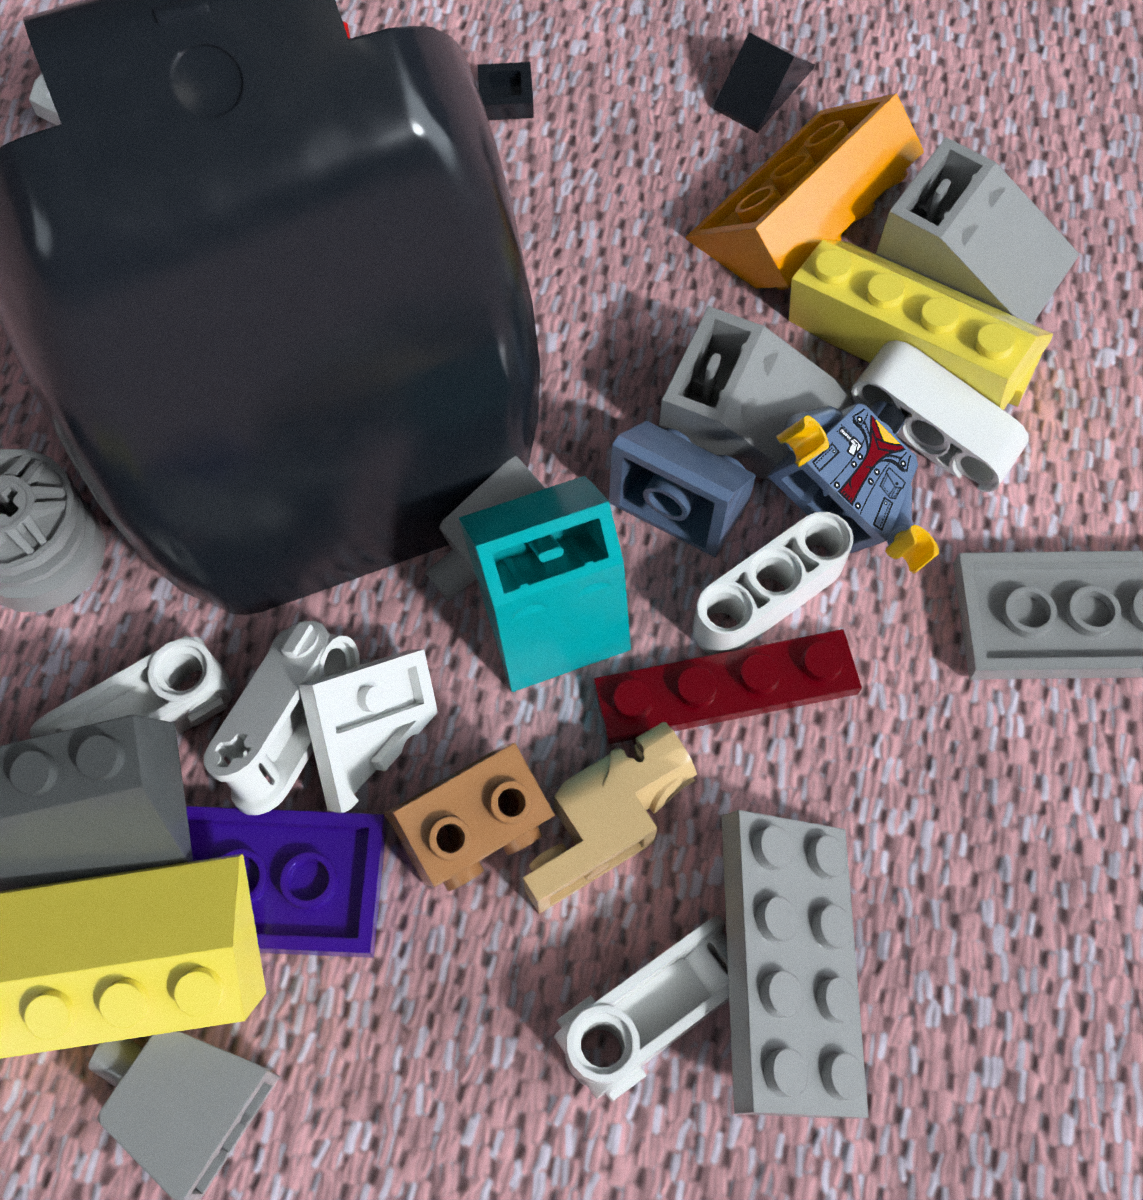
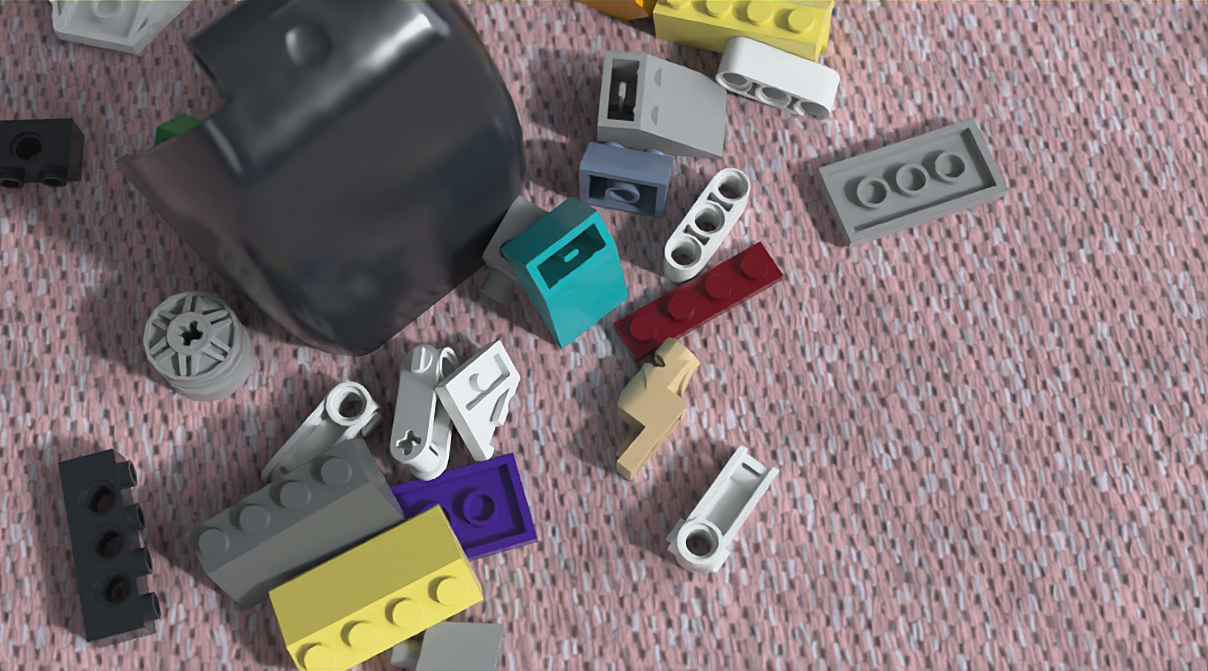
camera: 20 degrees left, 5 degrees up
(470, 813) = (569, 435): medium nougat brick -> none
(791, 969) = (795, 459): light grey plate -> none
(859, 471) = (738, 135): torso -> none

